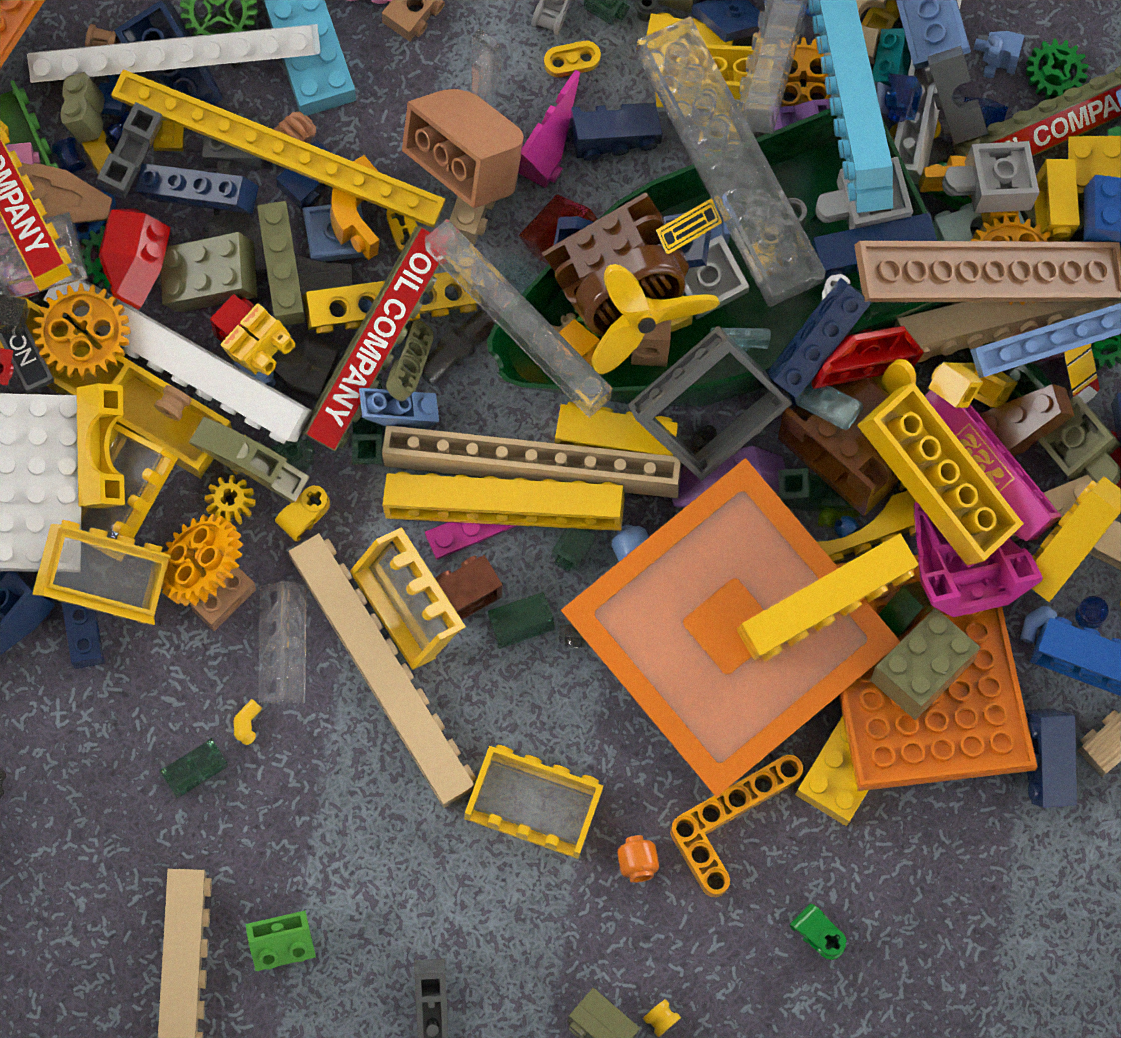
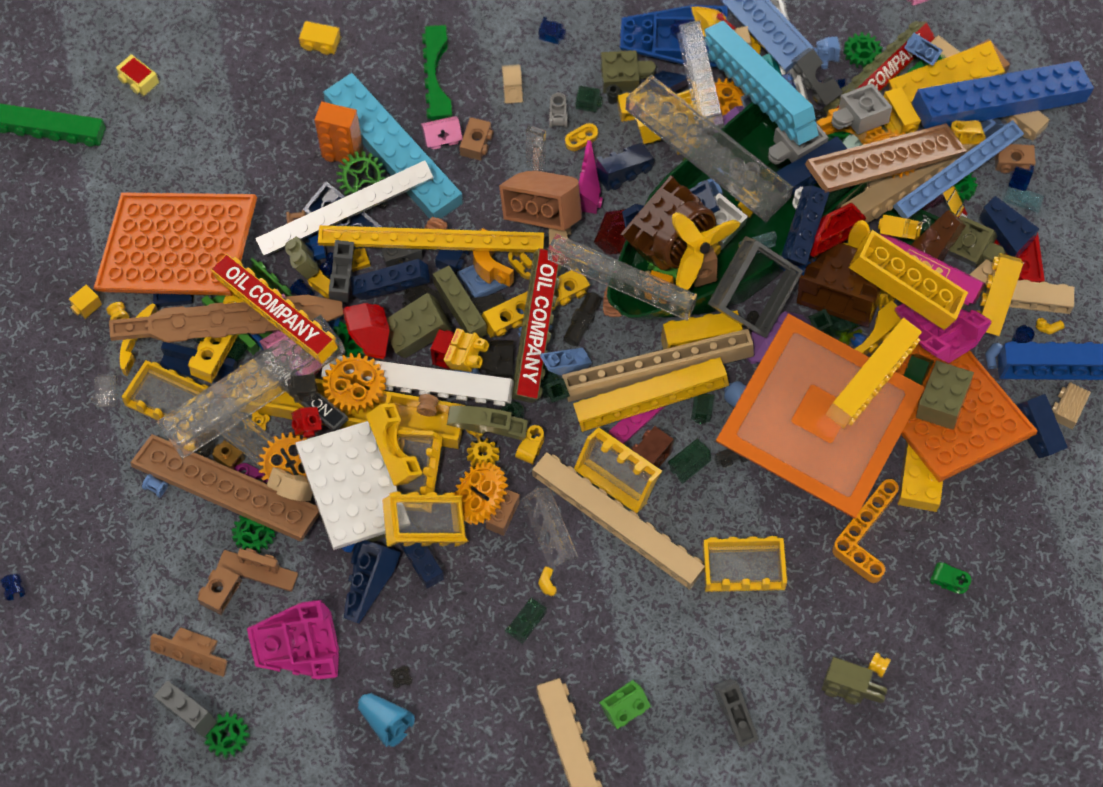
camera: 15 degrees left, 10 degrees down
(412, 361) = (561, 333): olive beam -> none
(638, 859) = (822, 575): orange head -> none
(689, 226) = (702, 188): sticker -> none
(830, 404) = (826, 263): clear light blue plate -> none

